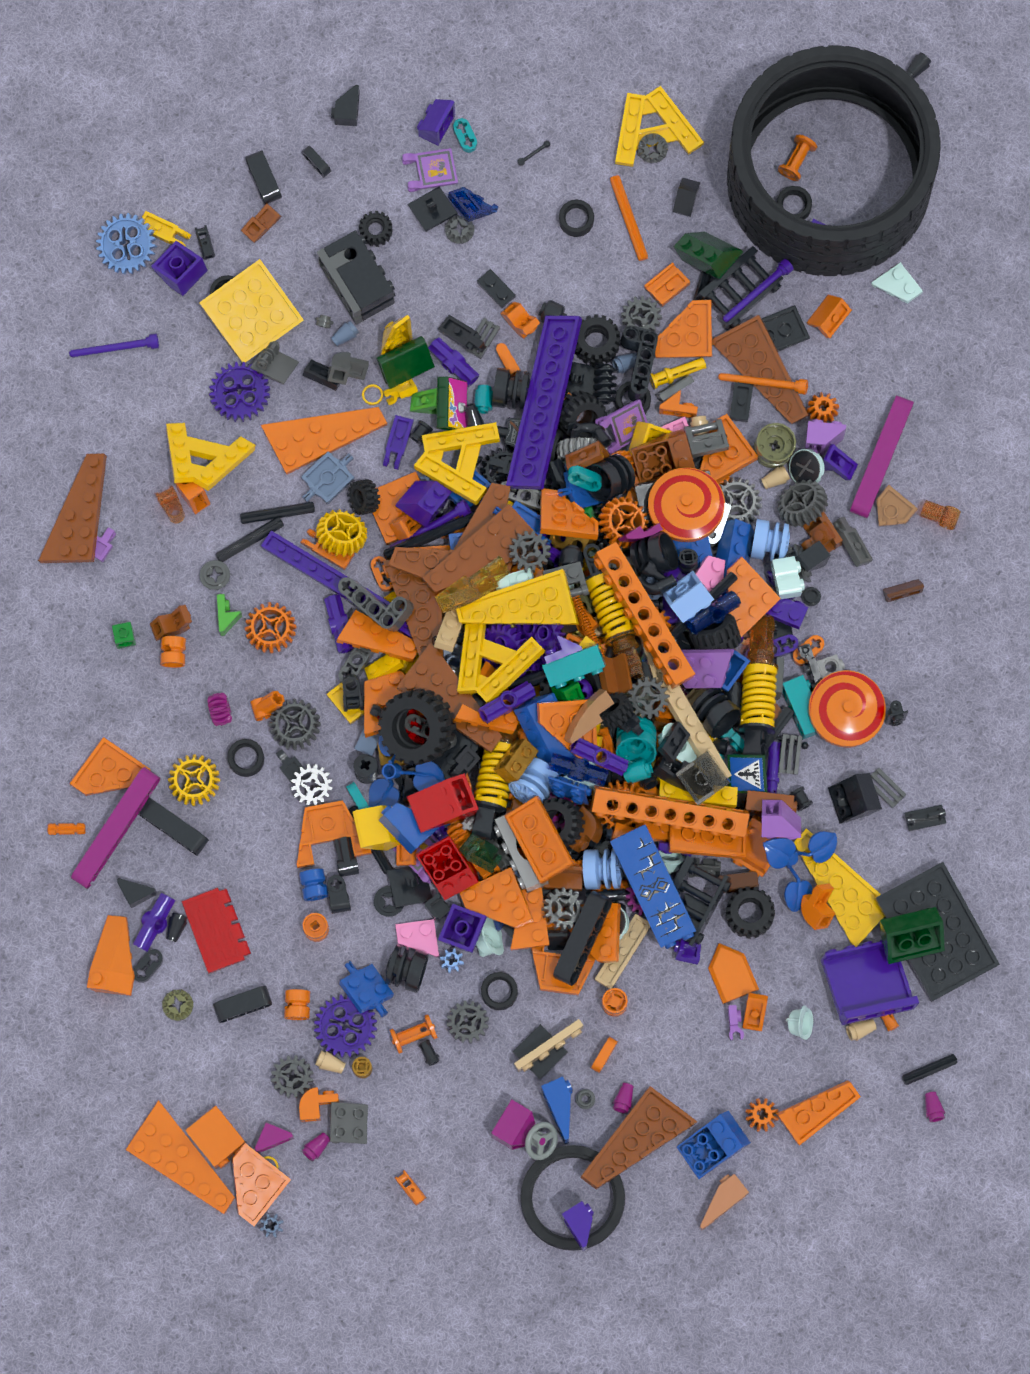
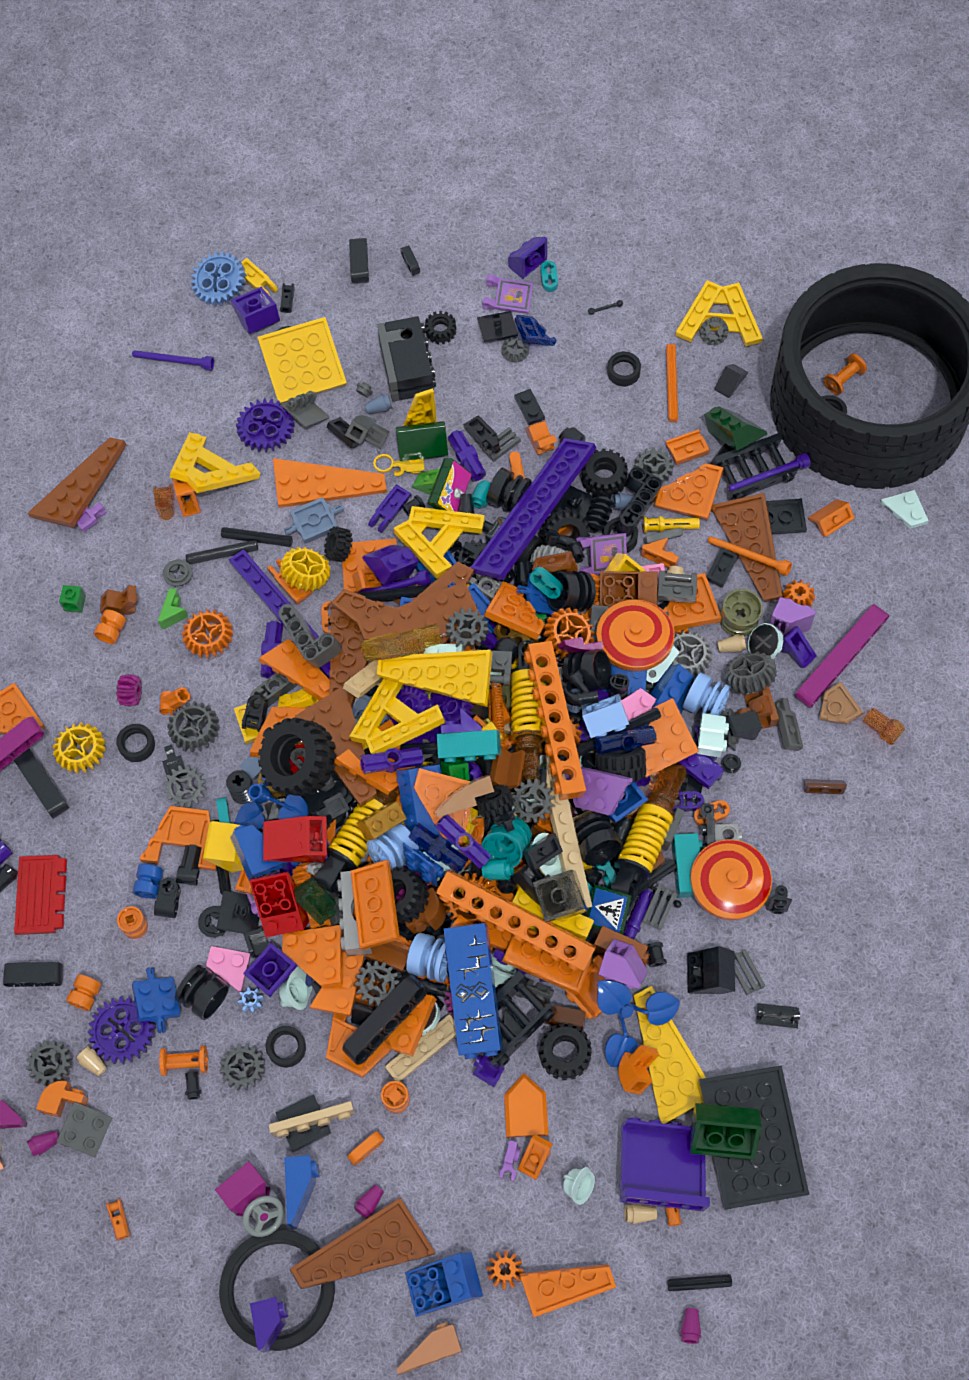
camera: 20 degrees right, 10 degrees down
(261, 223) = (339, 298): dark orange slope -> none
(346, 108) = (454, 225): black slope -> none
(365, 1067) = (124, 1077): pearl gold wheel -> none
(585, 1092) = (330, 1181): dark grey plate -> none

